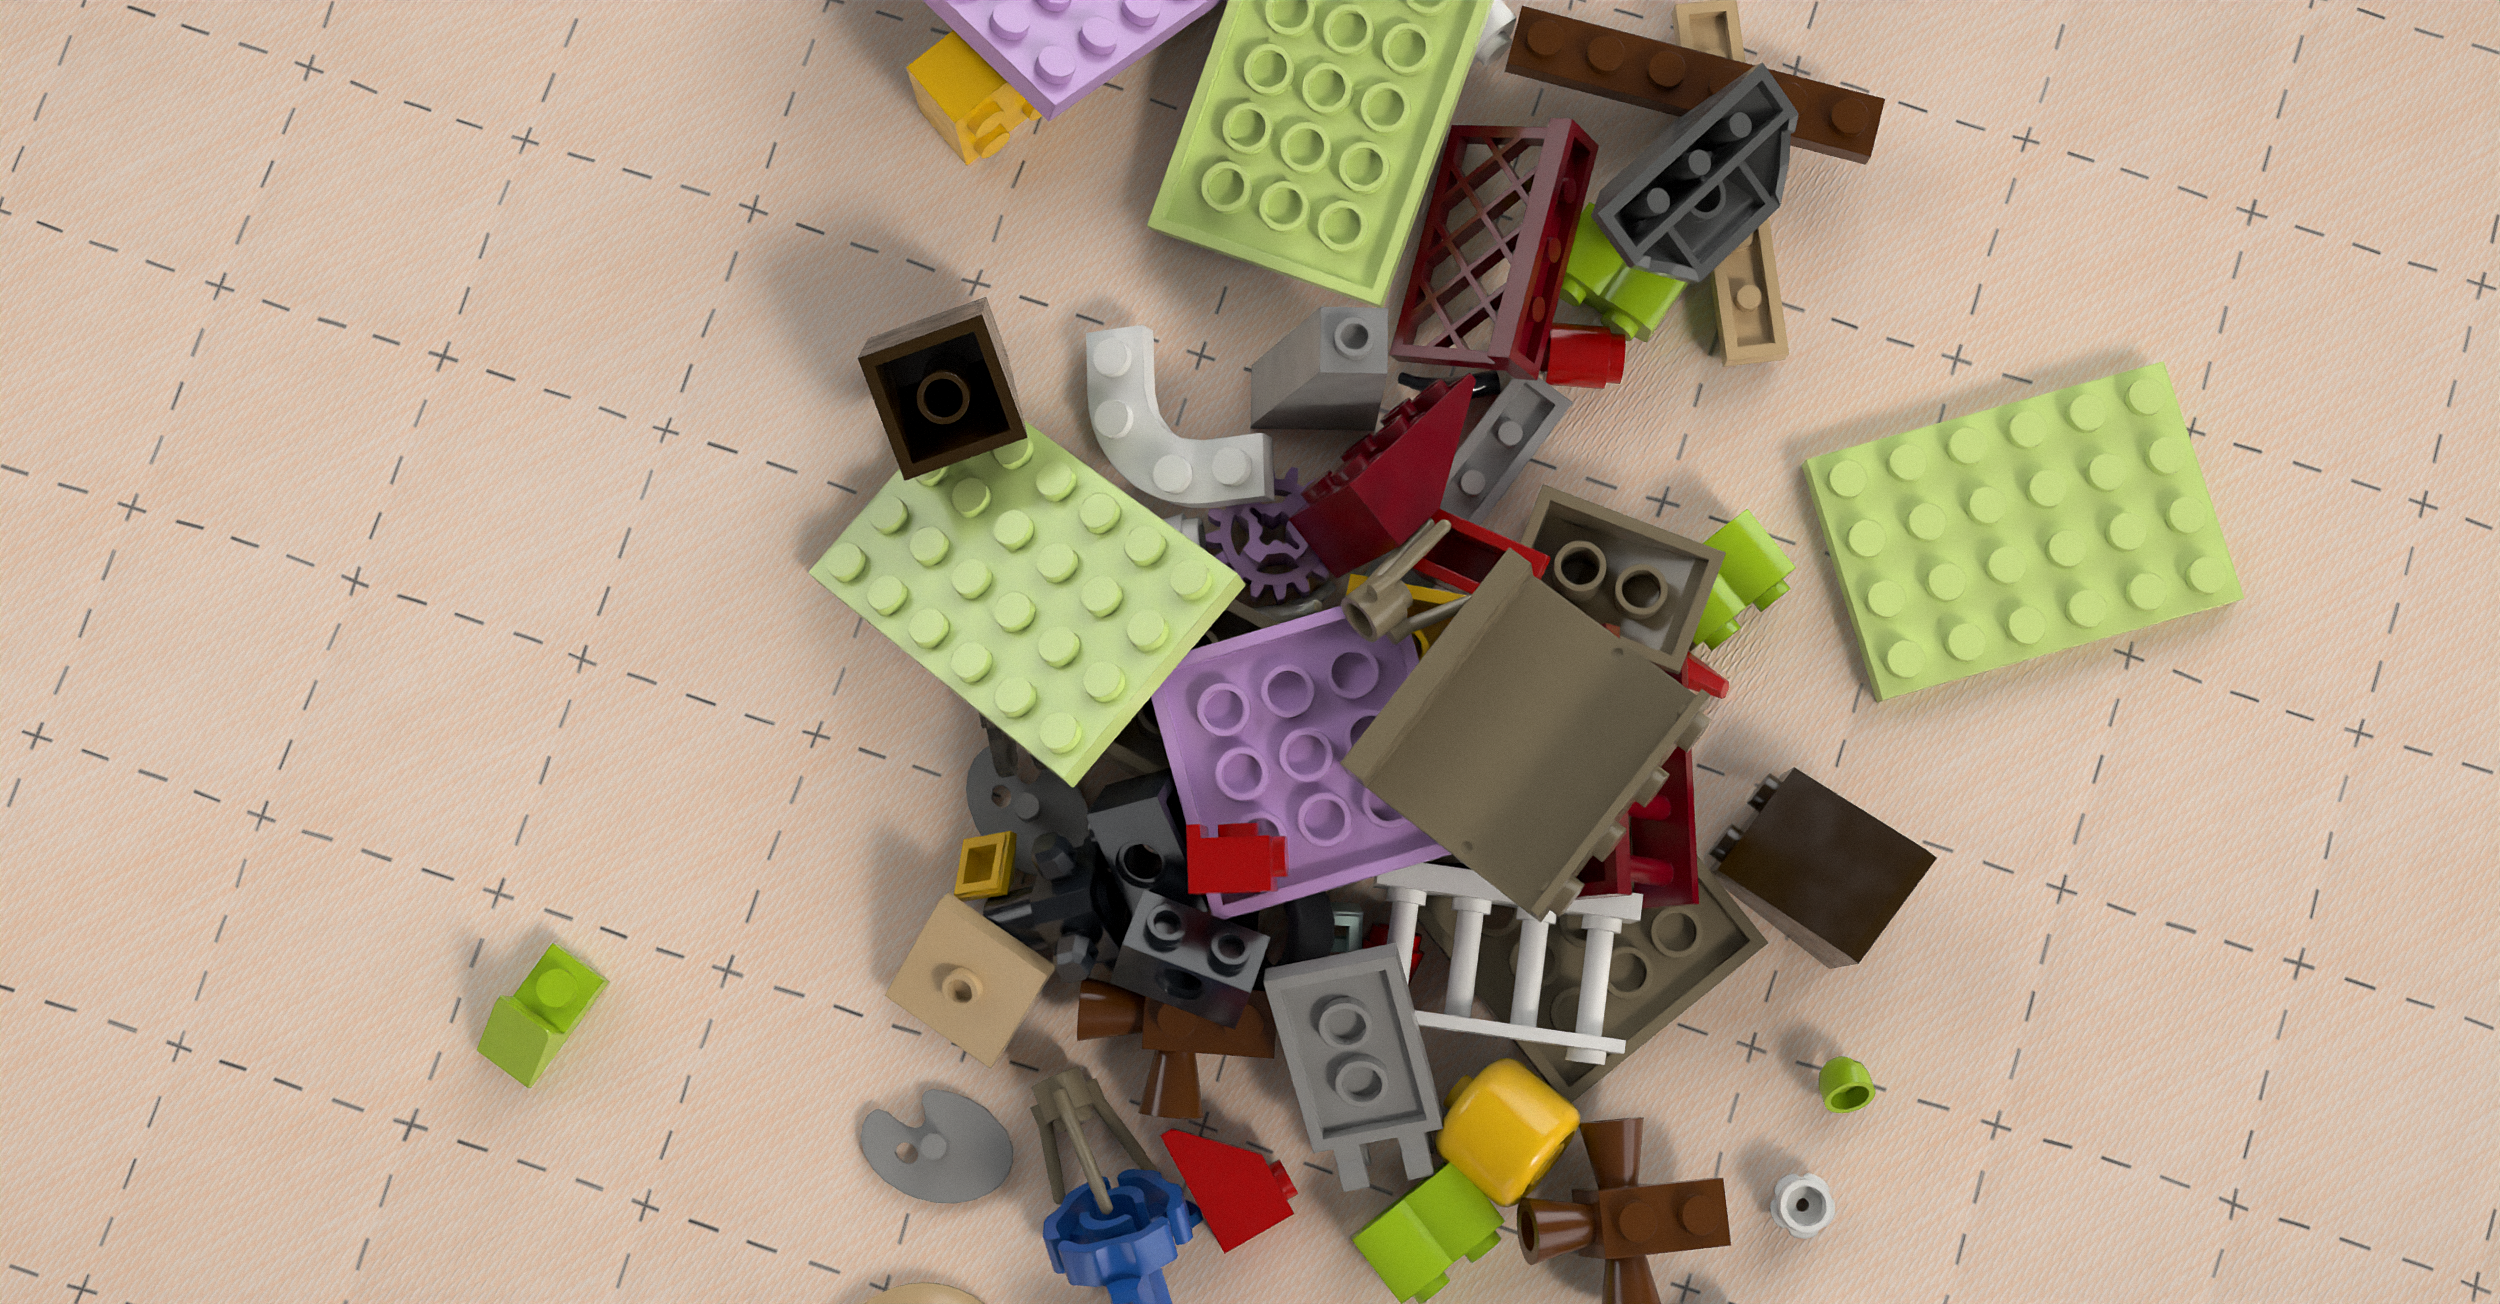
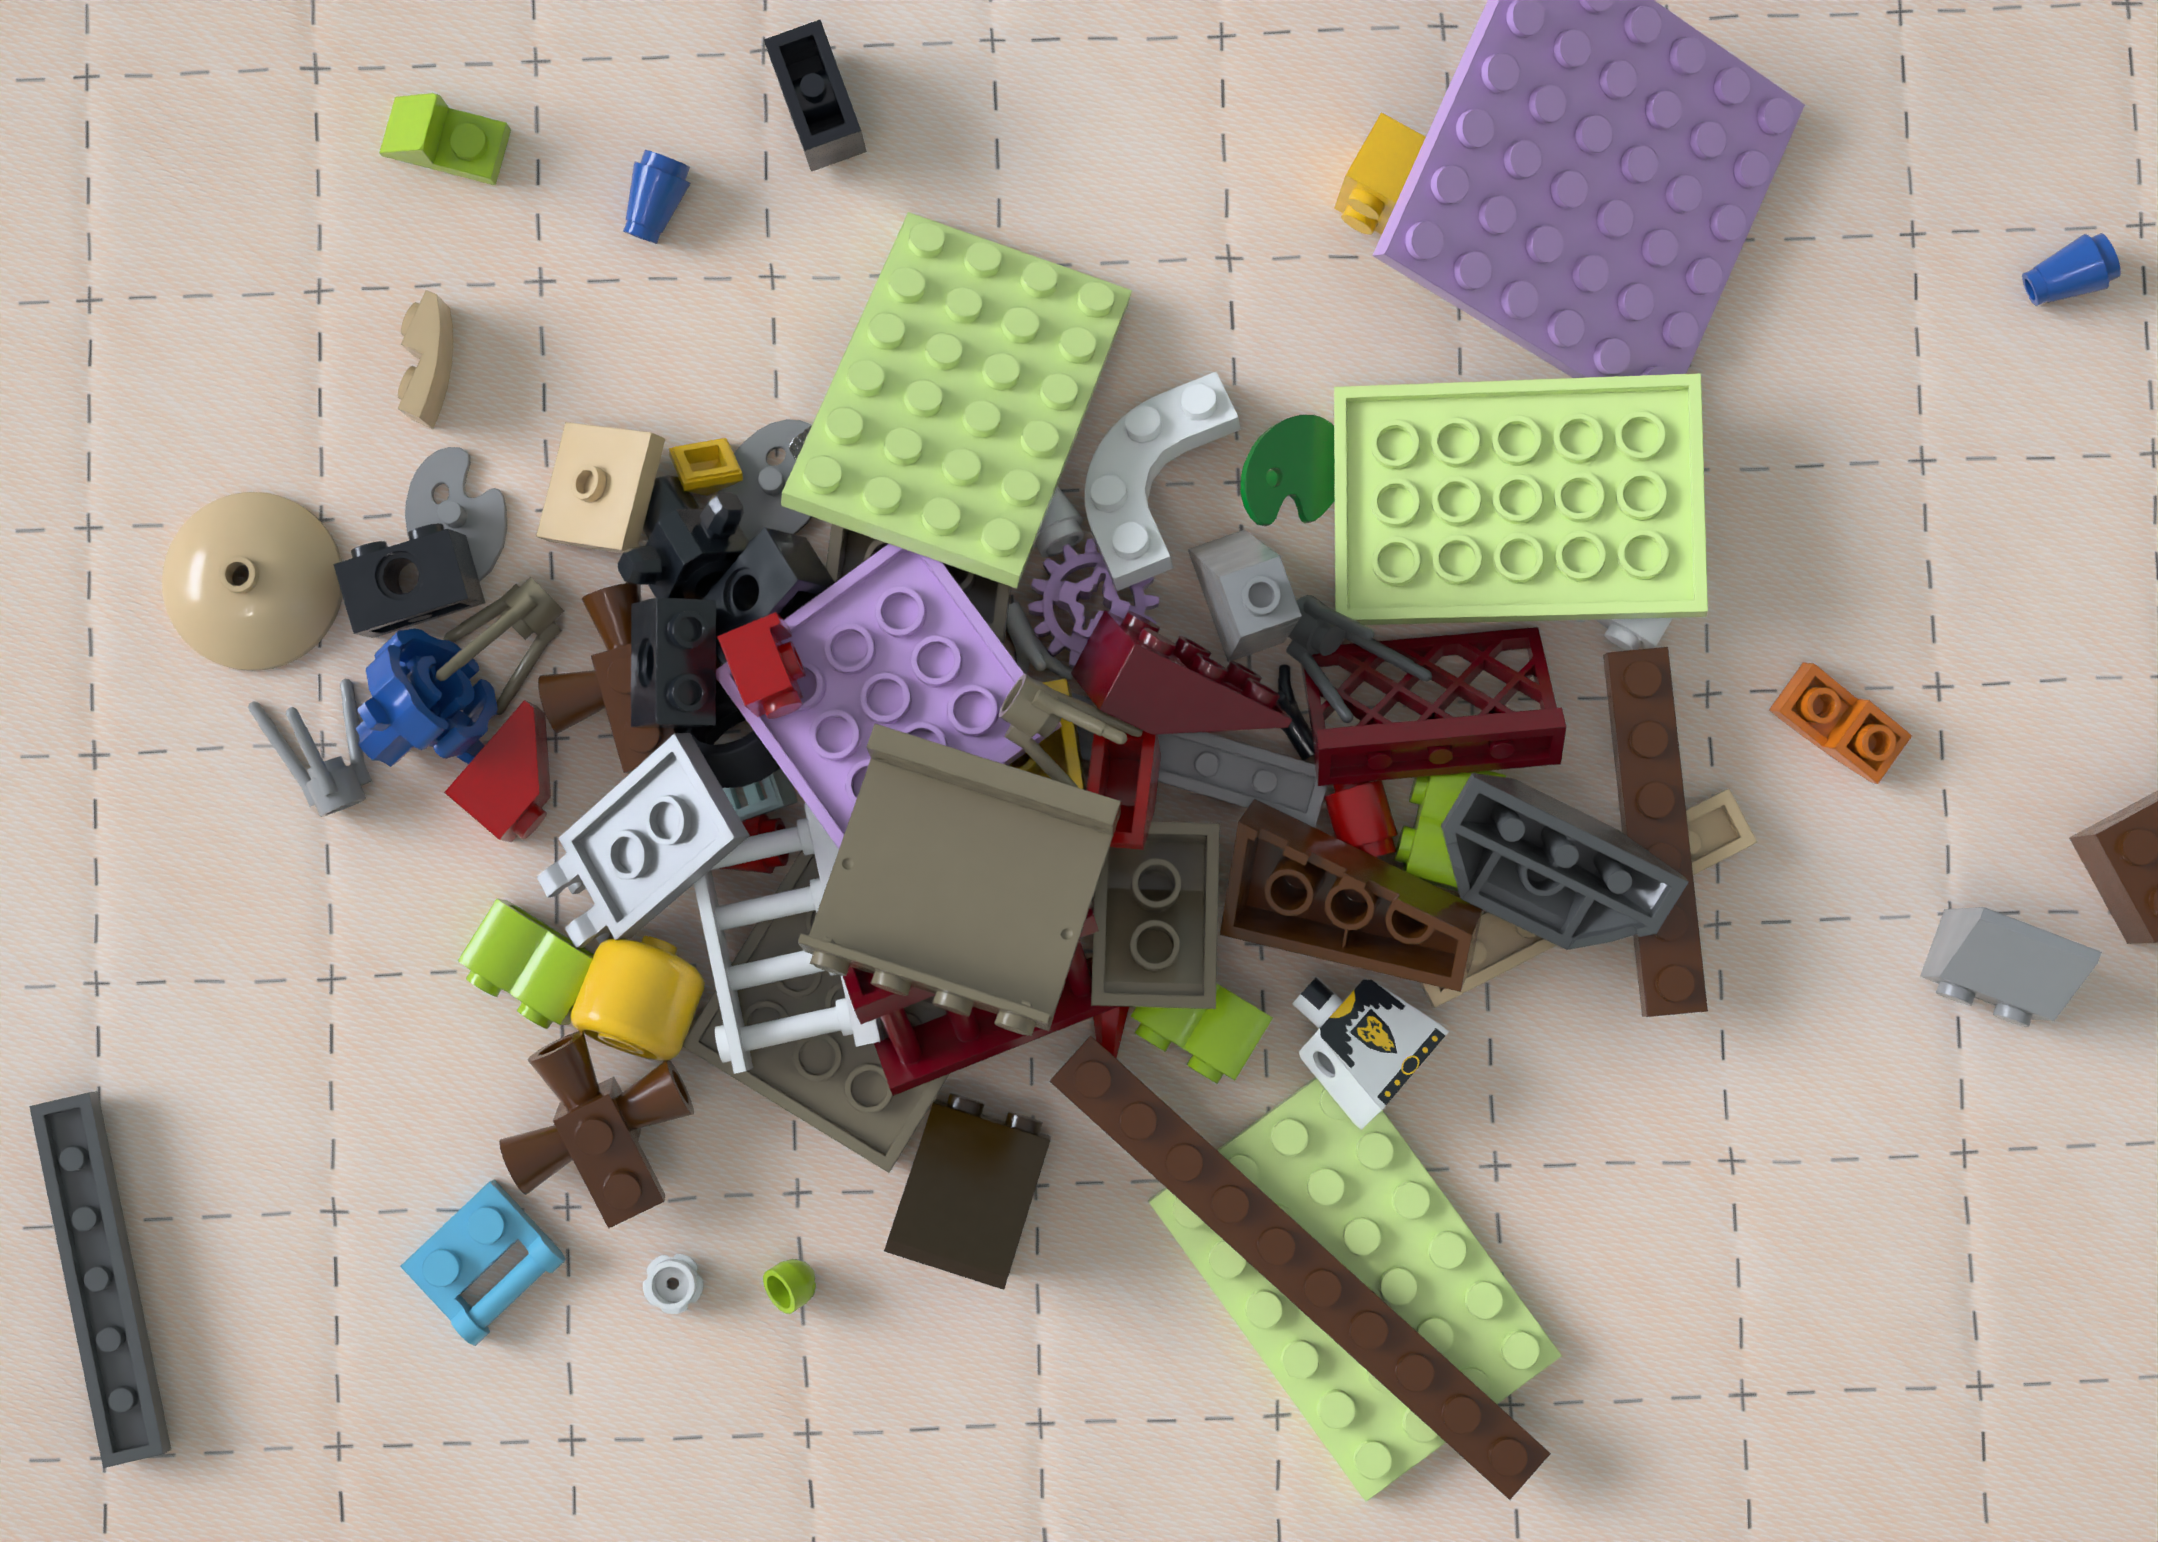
camera: 70 degrees right, 5 degrees up
(655, 616) = (815, 95): none -> black brick
(688, 818) = (654, 195): none -> blue cone
(748, 1104) = (428, 337): none -> tan slope
(943, 388) = (1108, 260): dark brown slope -> none
(988, 1256) = (444, 583): none -> black brick
(1206, 295) = (1290, 461): none -> green piece
(1402, 288) = (1323, 632): none -> dark grey plant
(1665, 396) = (1342, 905): none -> reddish brown wedge
(1805, 431) = (1364, 1045): none -> white torso
(1995, 574) = (1300, 1267): none -> reddish brown plate

